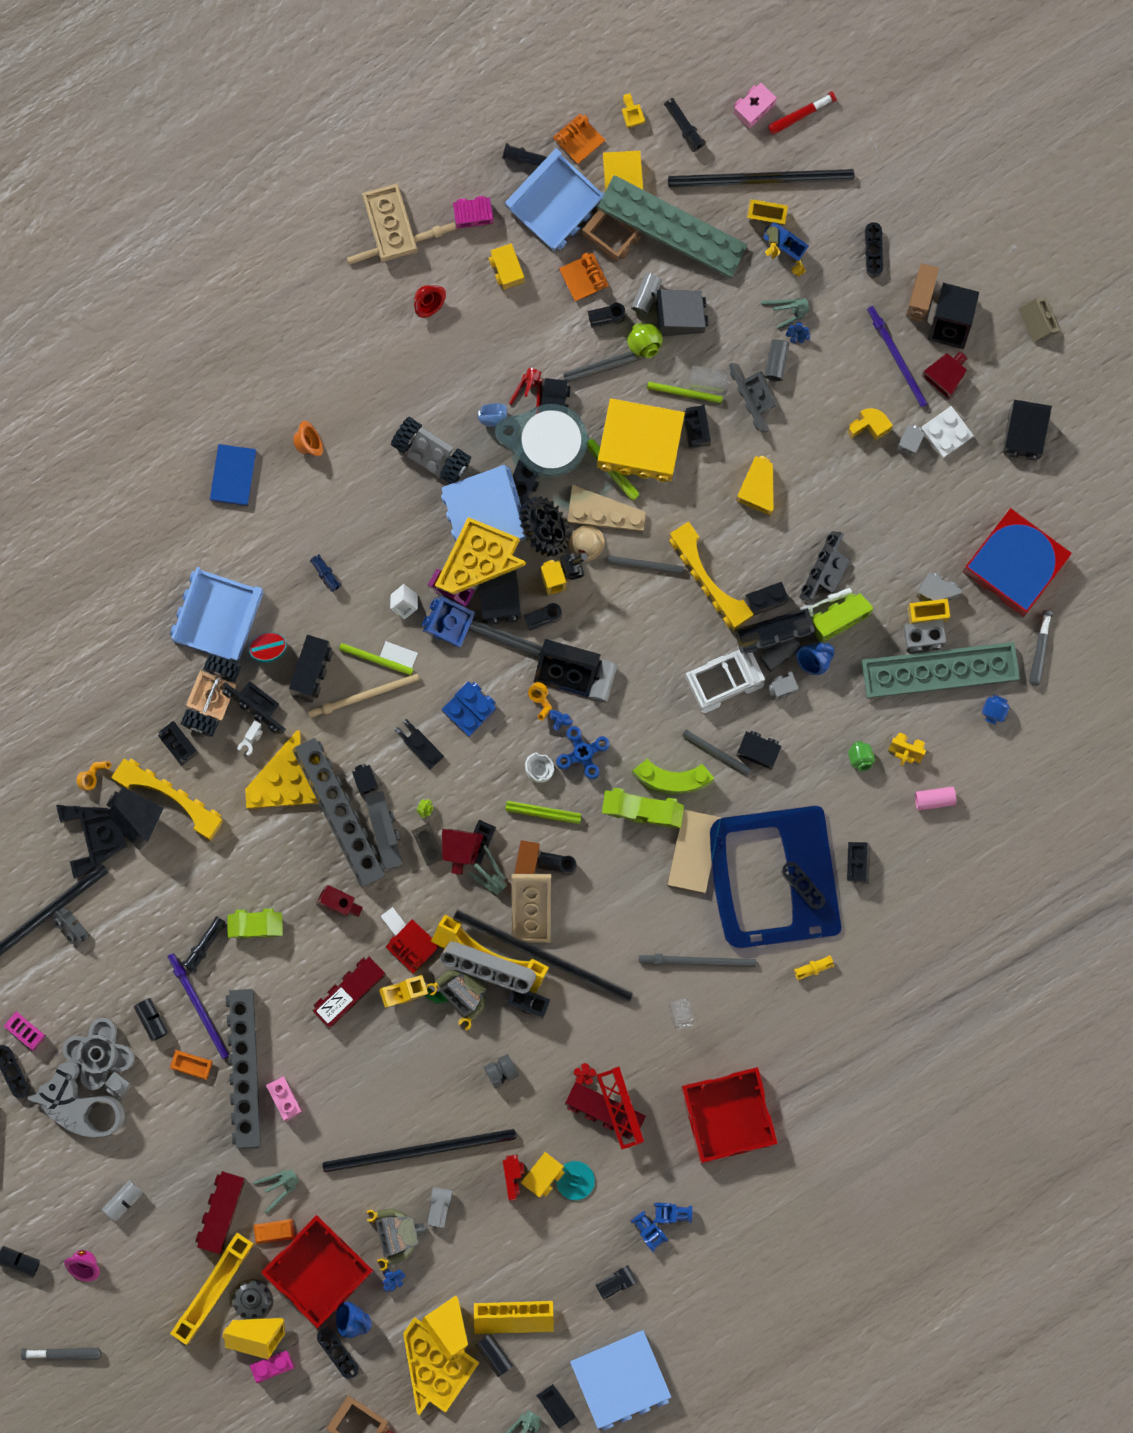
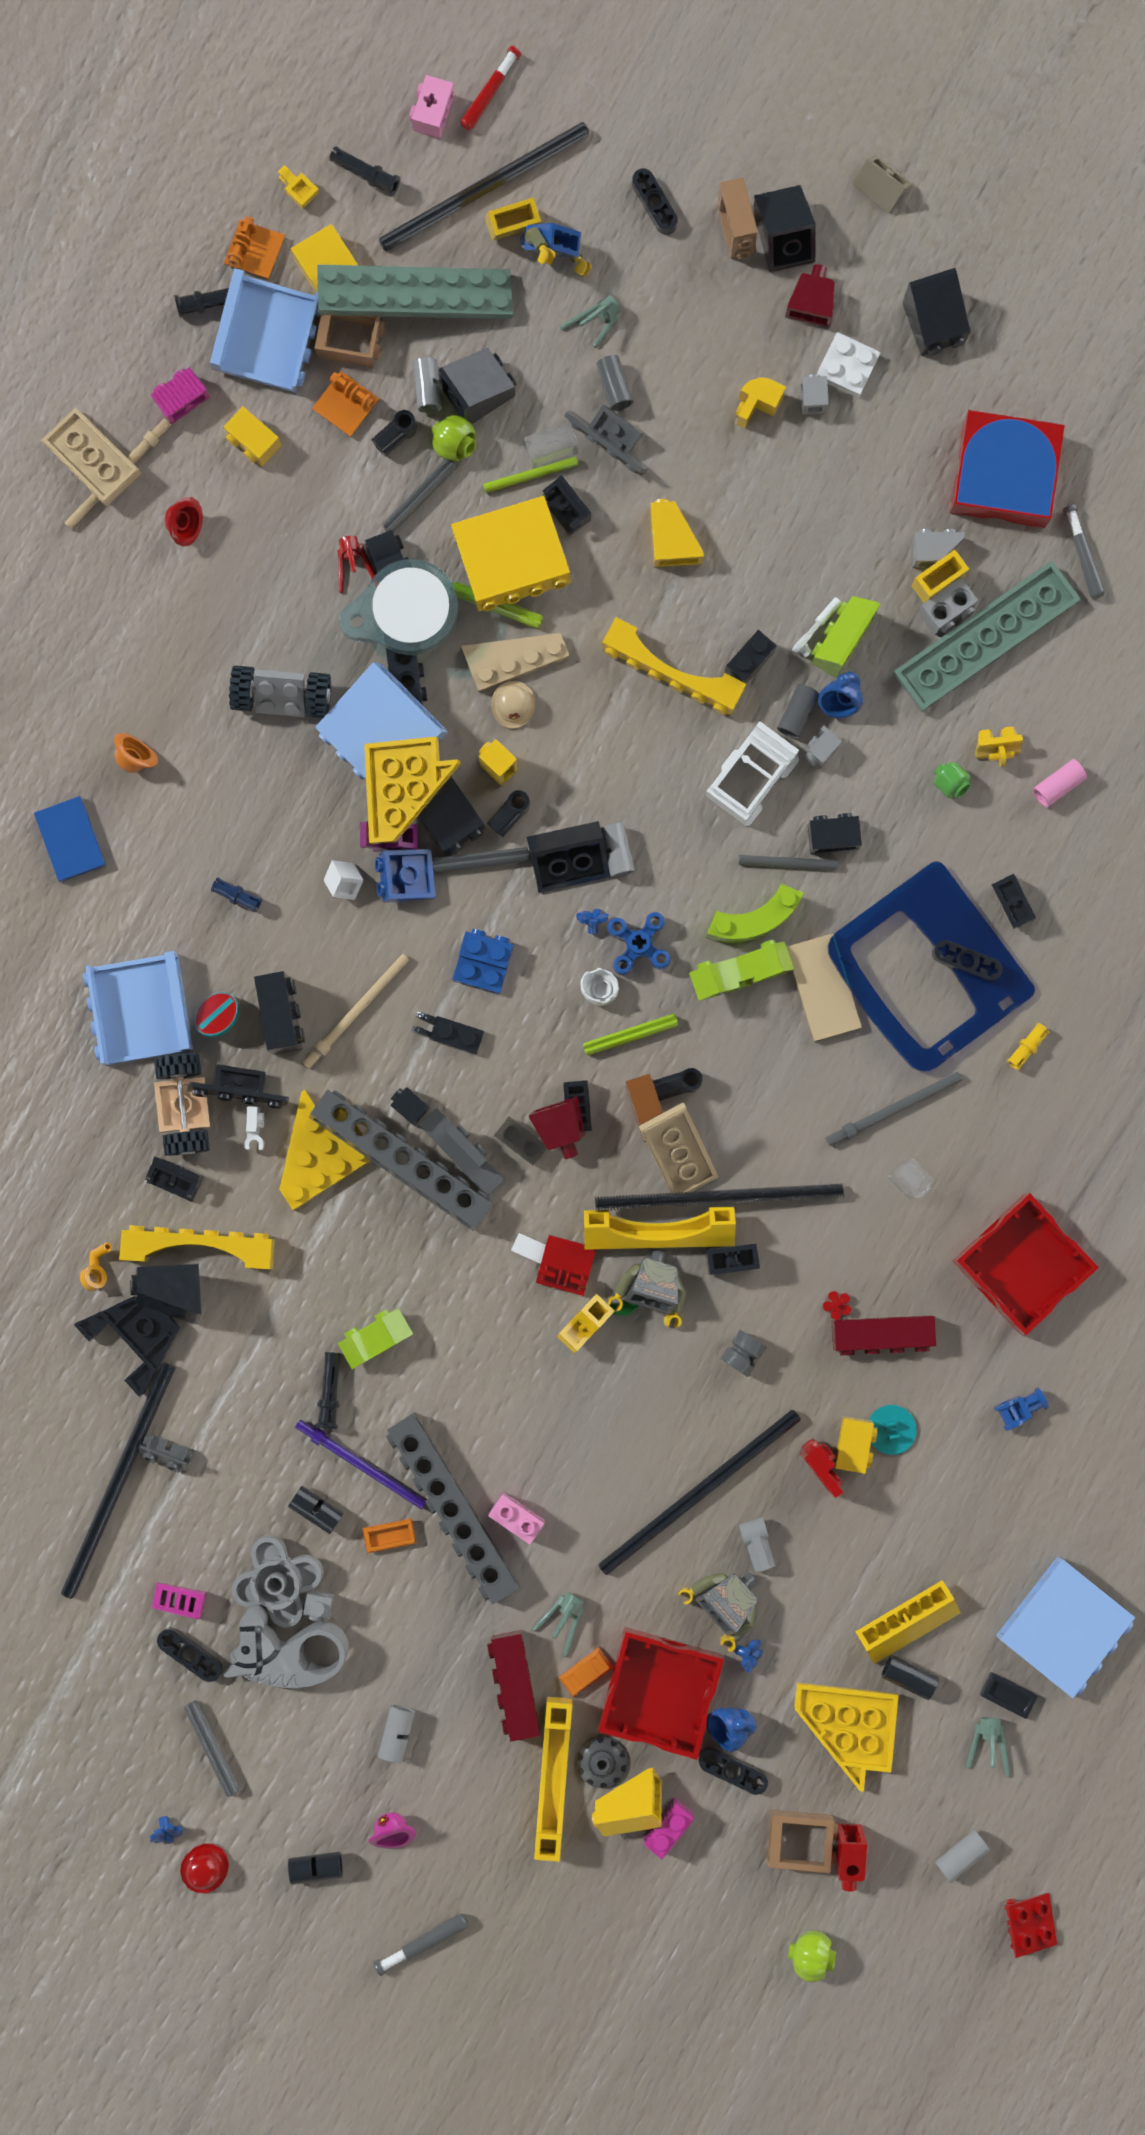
camera: 25 degrees left, 5 degrees up
(330, 900) = (445, 1261): dark red torso -> none
(349, 992) = (523, 1357): dark red brick -> none
(376, 659) = (347, 962): lime bar -> none
(398, 654) = (370, 947): white sticker -> none
(425, 808) = (495, 1101): lime plate -> none
(447, 1328) = (843, 1678): yellow slope -> none
(488, 967) = (667, 1245): light grey beam -> none
(492, 414) = (327, 613): medium blue hair -> none
(494, 883) = (619, 1144): sand green plant -> none
(540, 697) = (556, 906): light orange plate -> none
(541, 528) = (456, 709): black gear -> none
(572, 565) = (512, 737): black beam -> none
(618, 1281) = (1005, 1513): black piece -> none
(625, 1100) = (907, 1315): red fence -> none
(646, 564) = (593, 692): dark grey bar -> none
(650, 1232) = (1009, 1444): blue connector -> none
(774, 630) = (780, 690): black hinge -> none
(798, 333) = (621, 339): blue plant -> none
(827, 569) = (799, 589): black bracket -> none
(879, 325) = (707, 283): dark purple bar -> none
(995, 709) = (1072, 647): blue head -> none

